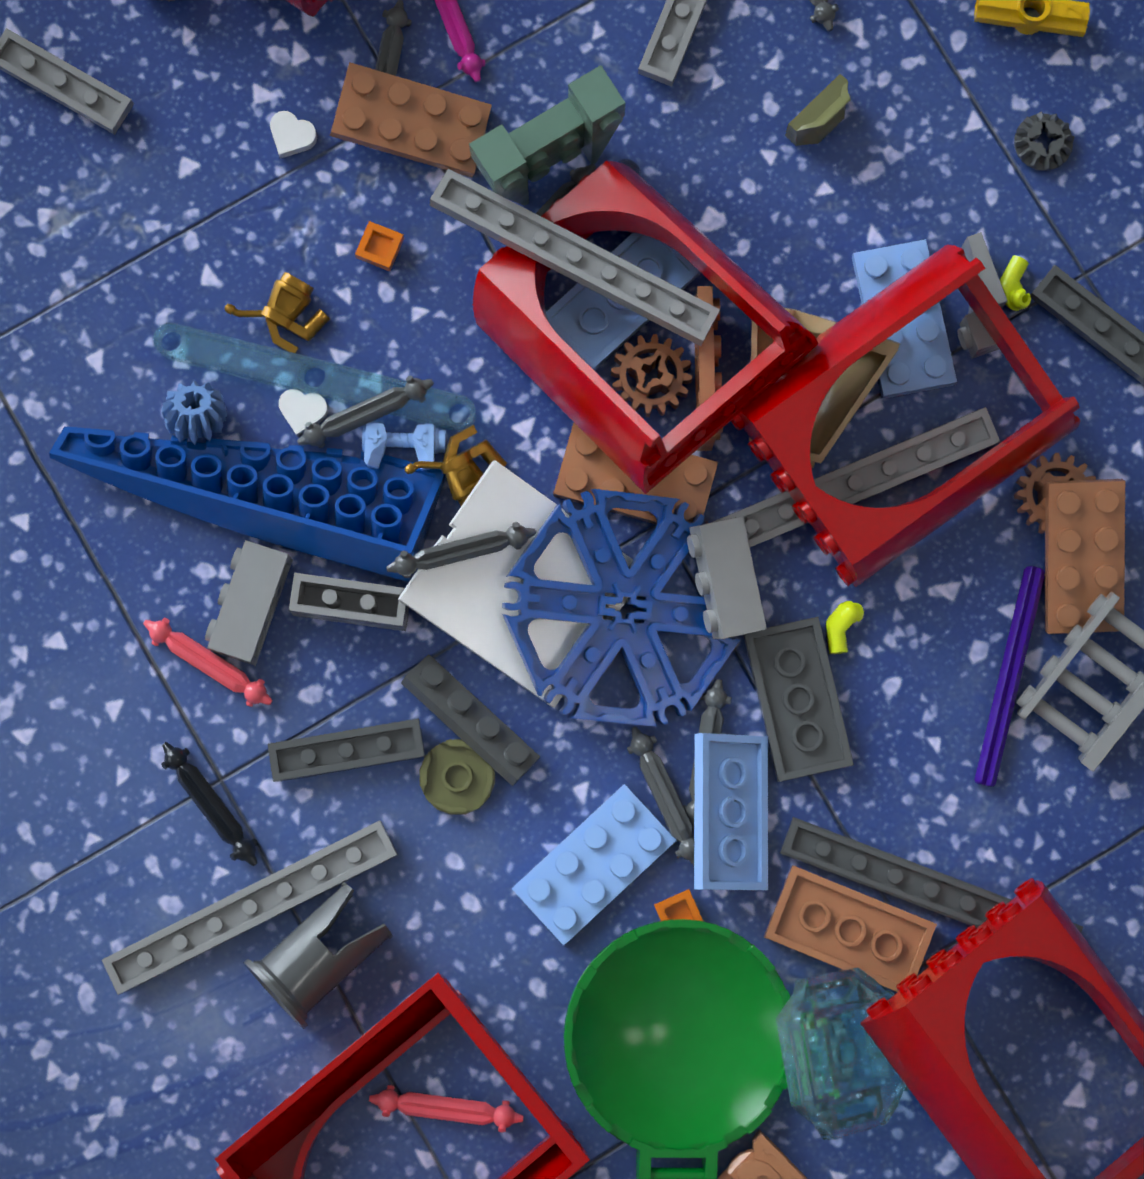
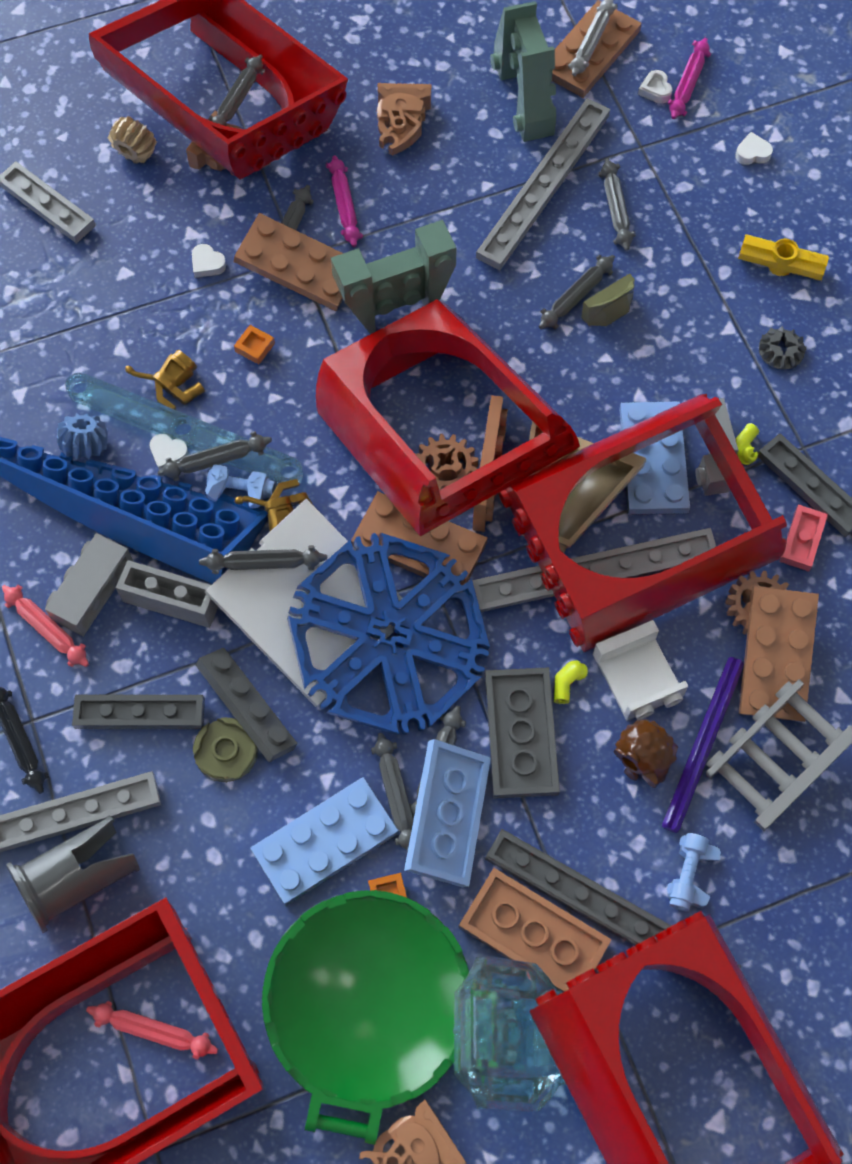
camera: 10 degrees right, 15 degrees down
(574, 257) = (399, 357): light grey plate -> none
(600, 326) = (437, 402): light blue plate -> none
(726, 578) = (477, 621): light grey brick -> none
(775, 102) = (576, 291): none -> dark grey wheel
(924, 603) = (638, 672): none -> white panel
(947, 702) = (647, 751): none -> reddish brown animal
(1009, 855) = (683, 891): none -> light blue piece
(1098, 398) = (804, 537): none -> coral plate

